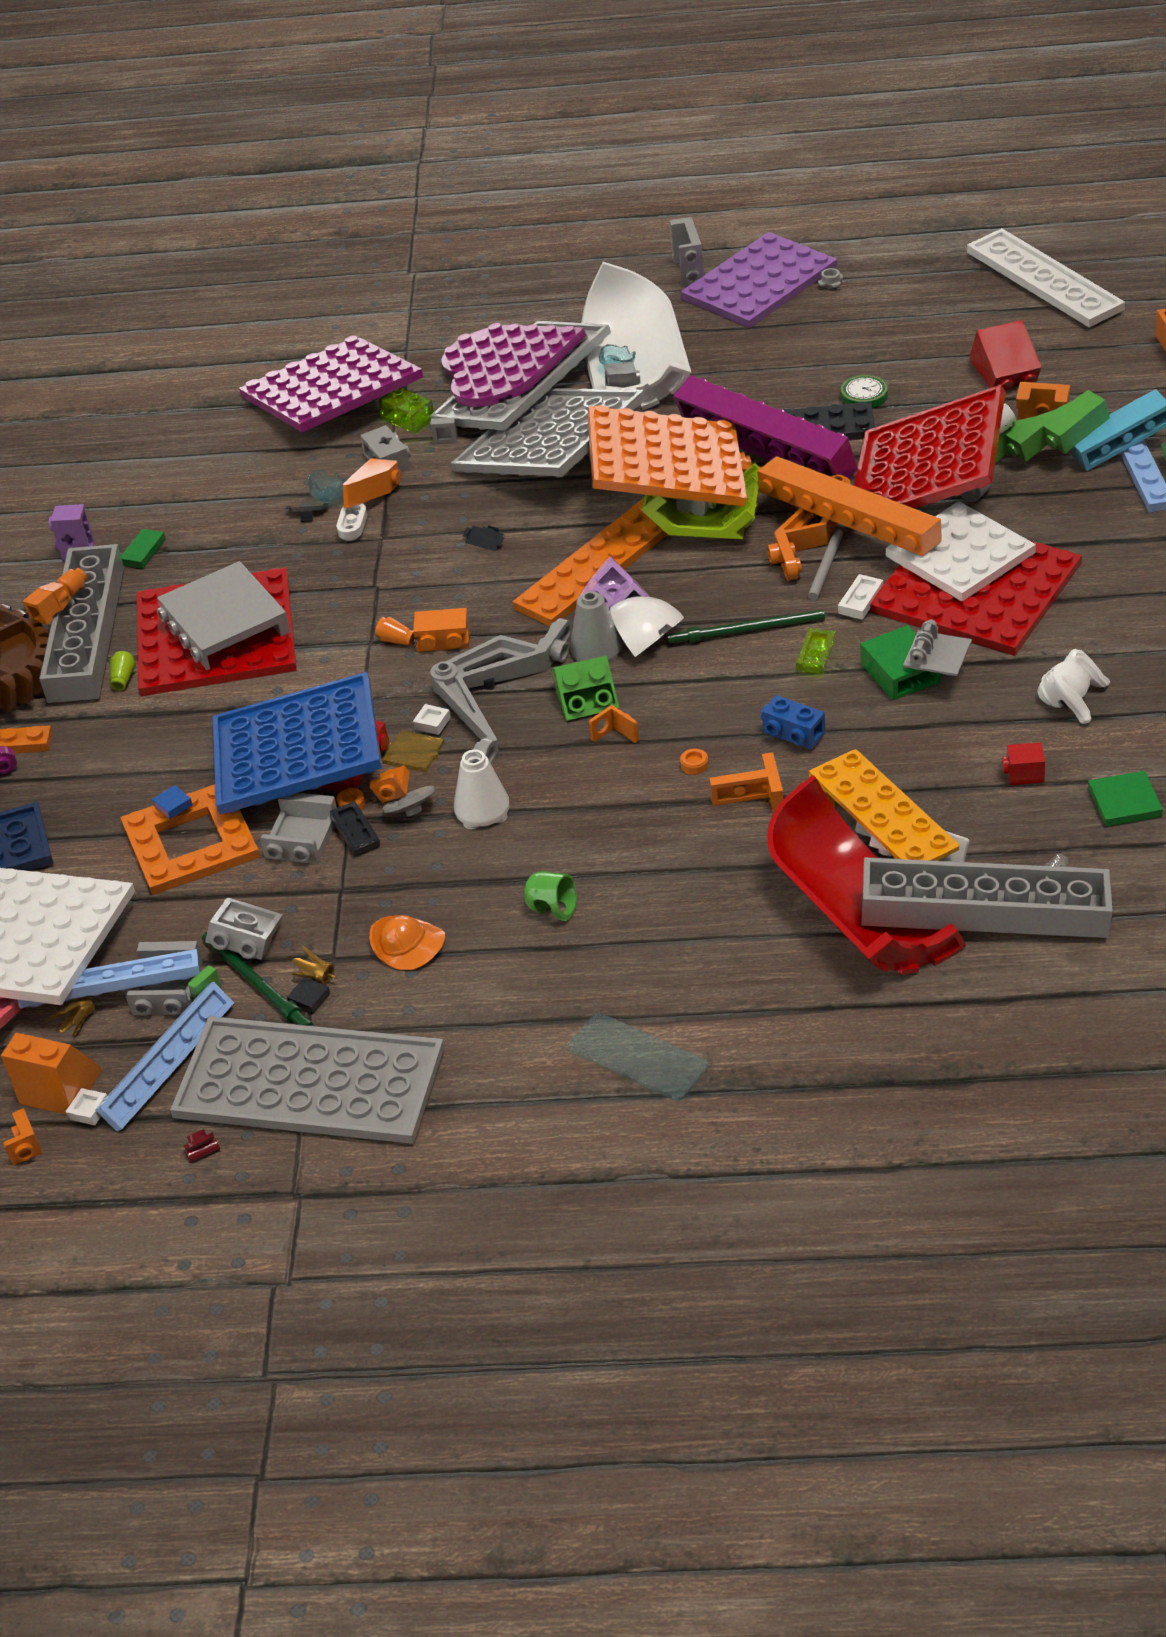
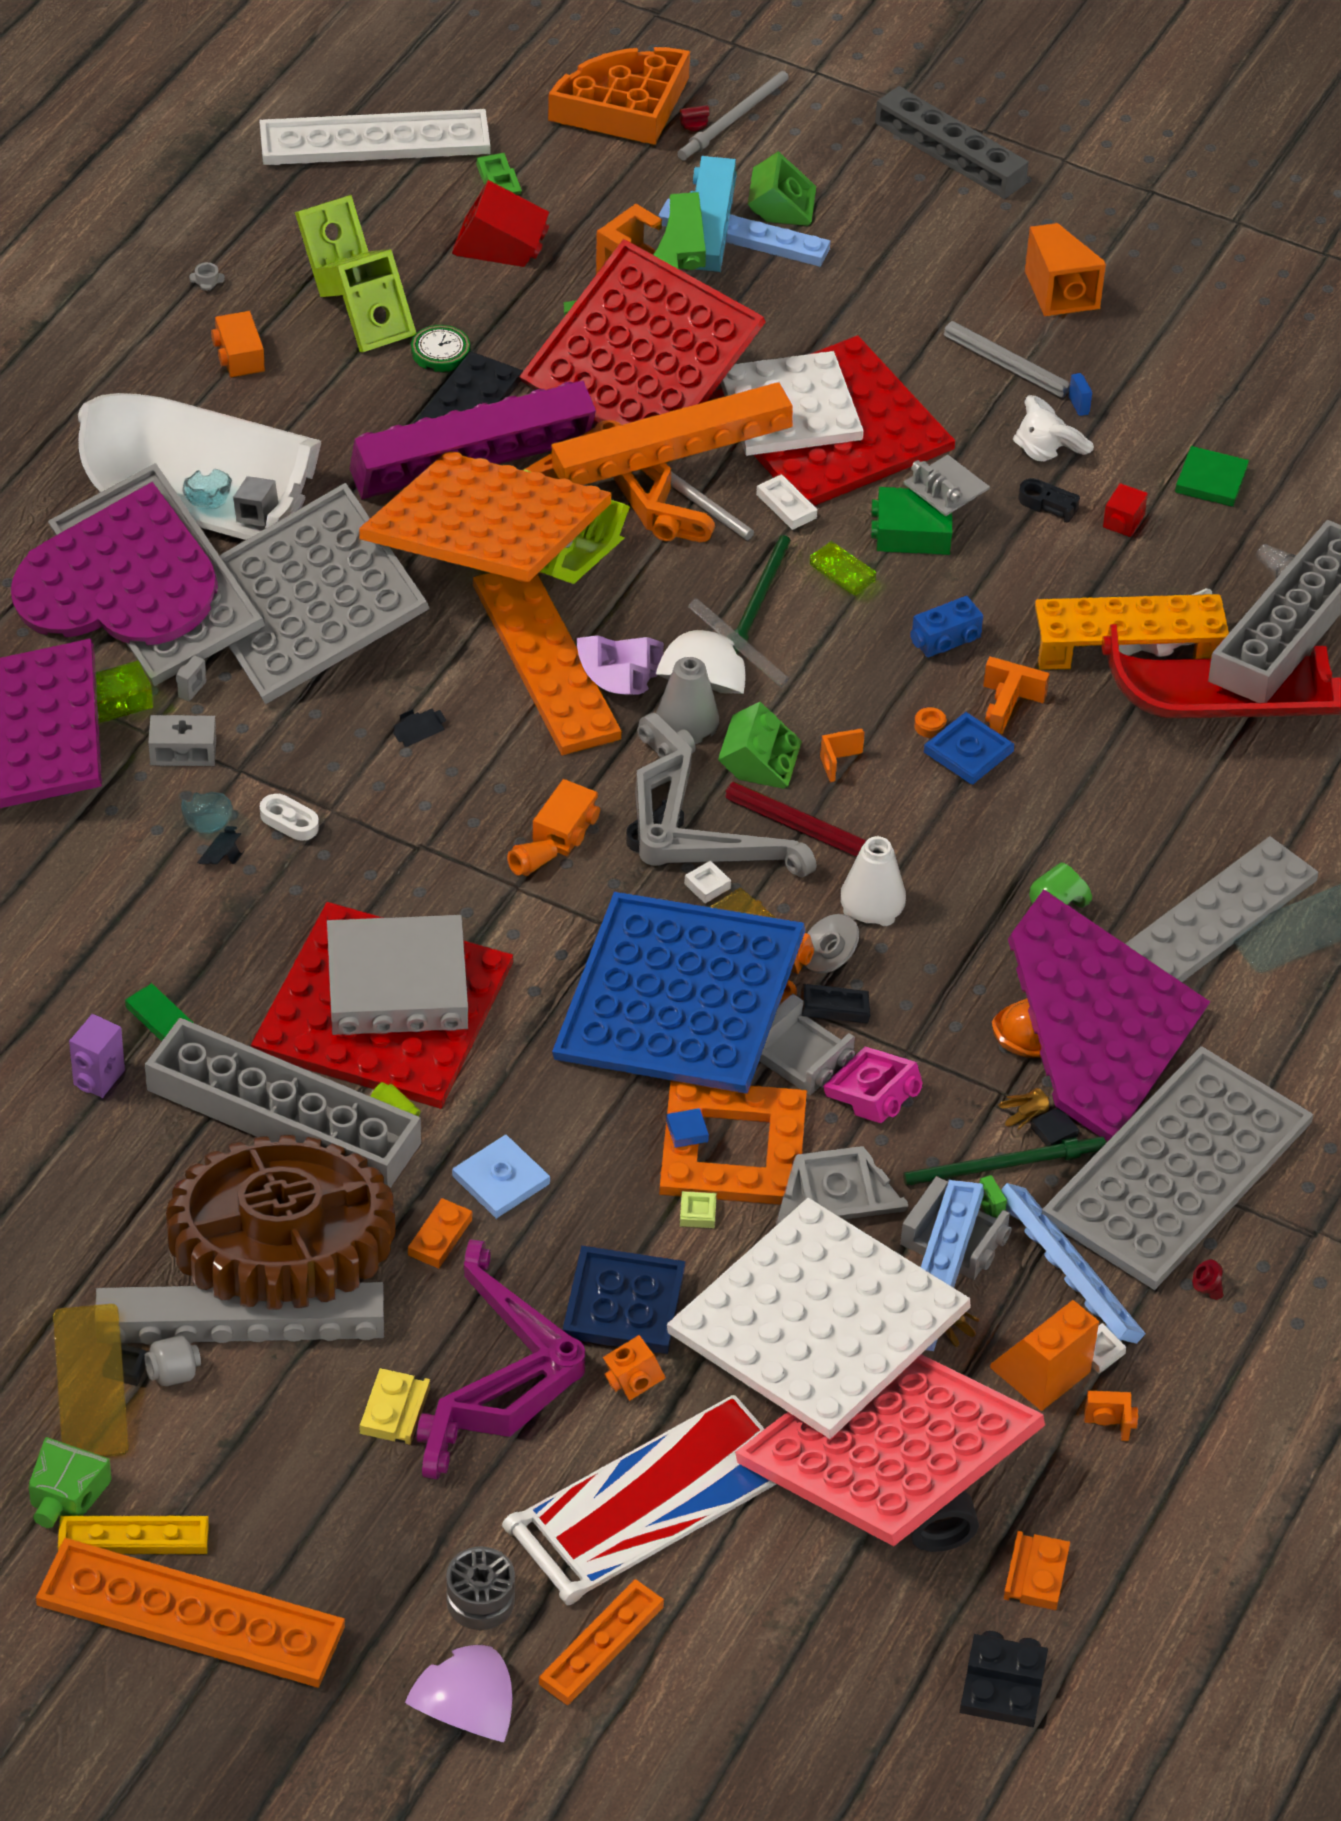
camera: 70 degrees left, 5 degrees up
(54, 596) = (252, 1097): orange piece -> none
(90, 744) = (501, 1176): none -> light blue plate
(114, 846) = (698, 1209): none -> yellowish green tile
(167, 900) = (842, 1183): none -> light grey wing
(243, 928) = (934, 1138): light grey plate -> none
(282, 879) = (875, 1084): none -> dark pink plate
(371, 481) = (238, 765): orange slope -> none
(428, 964) = (1099, 1013): none -> magenta plate
(532, 738) = (794, 818): none -> dark red axle
(595, 994) = (1224, 909): none -> light grey plate
(678, 789) = (969, 748): none -> blue plate
(682, 632) = (739, 642): none -> clear bar
(686, 250) = (56, 344): light grey panel -> none
(758, 279) = (143, 326): medium lavender plate -> none
(775, 315) = (238, 344): none -> orange brick
(869, 321) = (360, 276): none -> lime bracket
(1002, 724) = (1051, 499): none -> black piece
(1068, 340) = (497, 170): none -> bright green slope
(1137, 687) = (1080, 394): none -> blue tile
(1142, 638) = (1007, 359): none -> light grey axle

